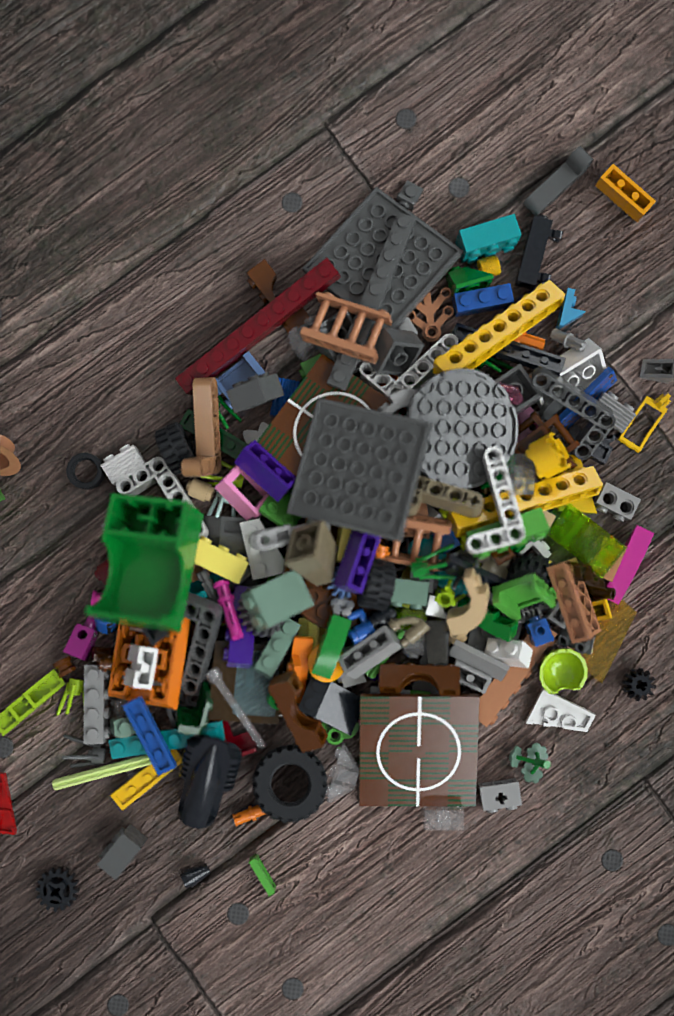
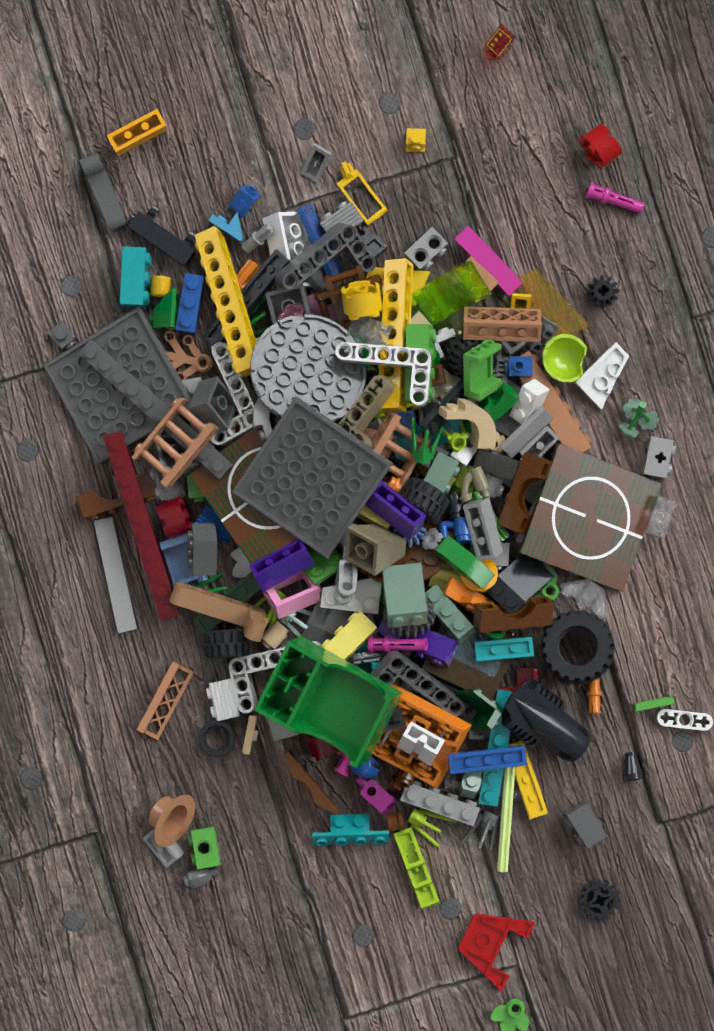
camera: 70 degrees left, 0 degrees up
(43, 627) = (350, 830): none -> teal bracket
(70, 573) = (309, 784): none -> reddish brown slope
(97, 501) = (251, 734): none -> tan plate
(110, 404) = (161, 692): none -> nougat fence
(205, 323) = (115, 575): none -> light grey tile
(215, 677) = (454, 680): clear piece -> none
(261, 713) = (503, 649): none -> teal plate
(266, 921) = (669, 723): none -> white beam
(277, 356) = (174, 517): none -> dark red brick
(595, 585) = (498, 299): dark brown flag -> none
(598, 315) = (244, 200): none -> blue bracket

